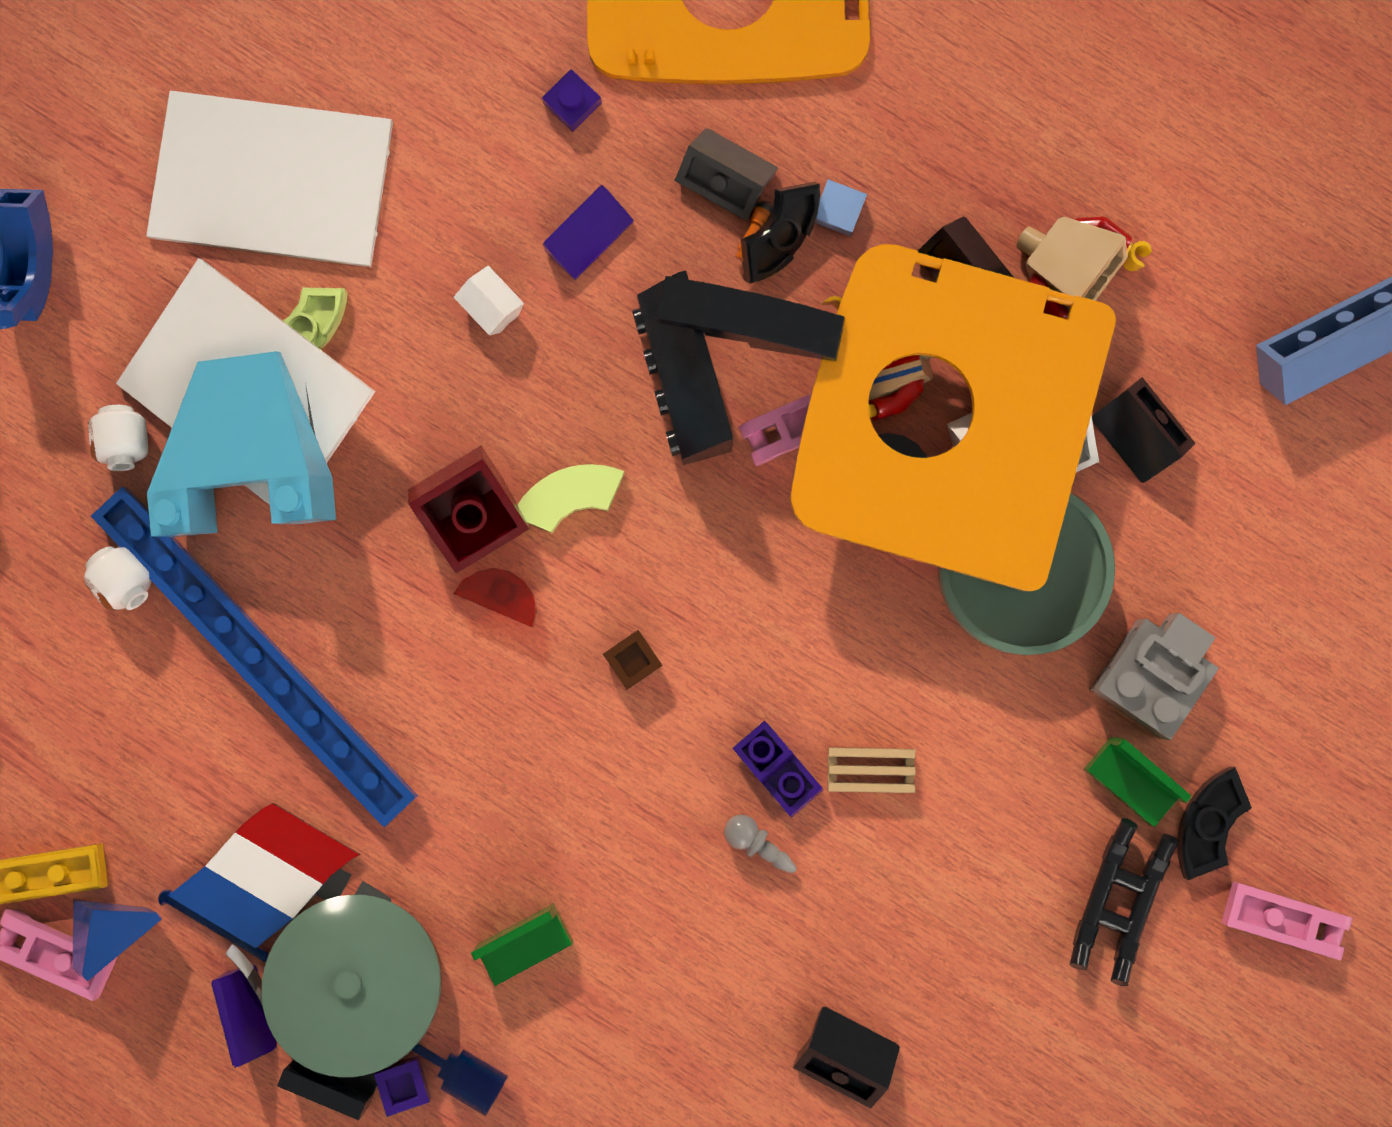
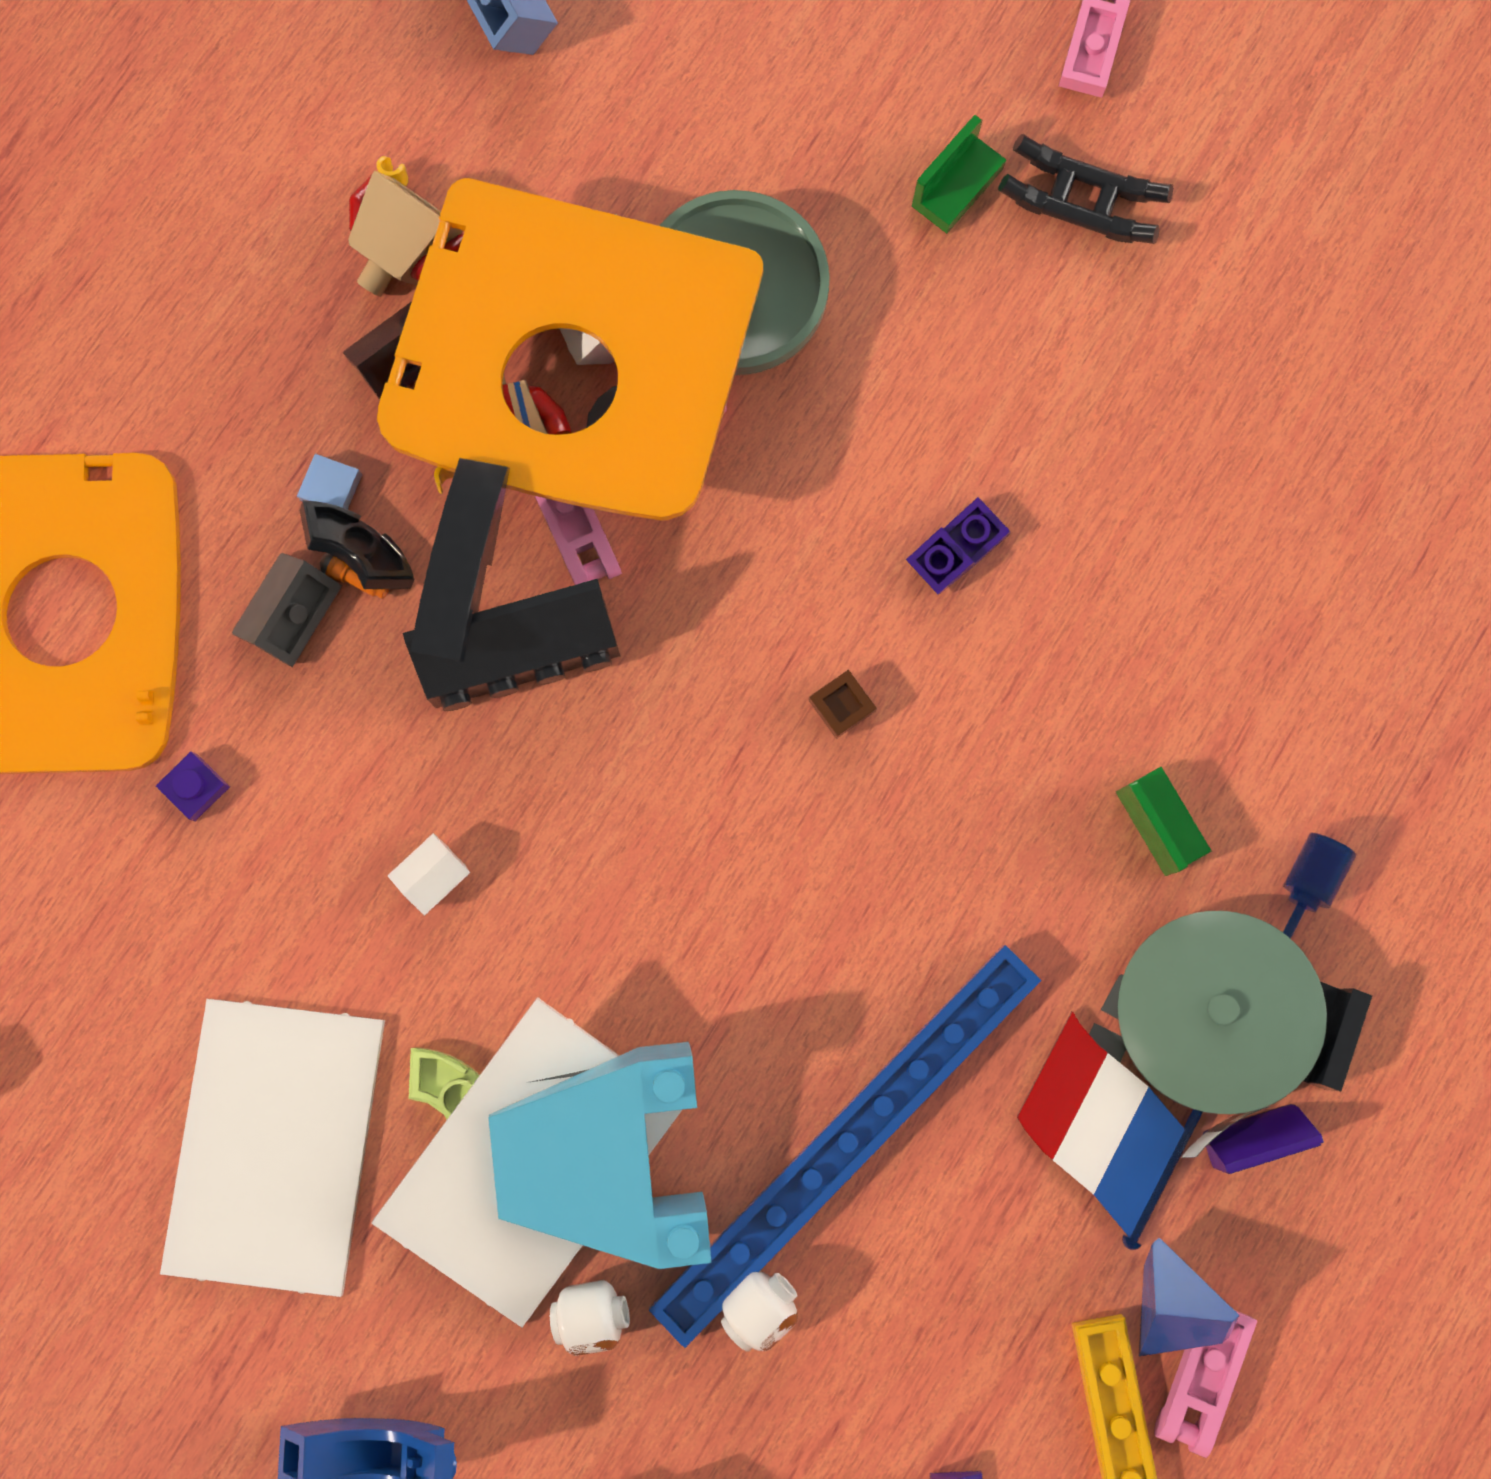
camera: 95 degrees left, 5 degrees down
(402, 1086) = (1331, 951): dark purple plate -> none
(467, 509) = (673, 891): dark red slope -> none
(501, 593) = (769, 854): clear red plate -> none
(570, 491) = (651, 780): yellowish green tile -> none
(587, 232) = (351, 763): dark purple slope -> none
(743, 833) = (1030, 581): light grey bar -> none
(848, 1058) = (1266, 469): black panel -> none
(907, 770) = (956, 410): tan tile -> none
(1143, 431) = (585, 165): black panel -> none
(1158, 673) = (844, 154): light grey piece -> none
(1207, 823) = (1003, 110): black tile -> none

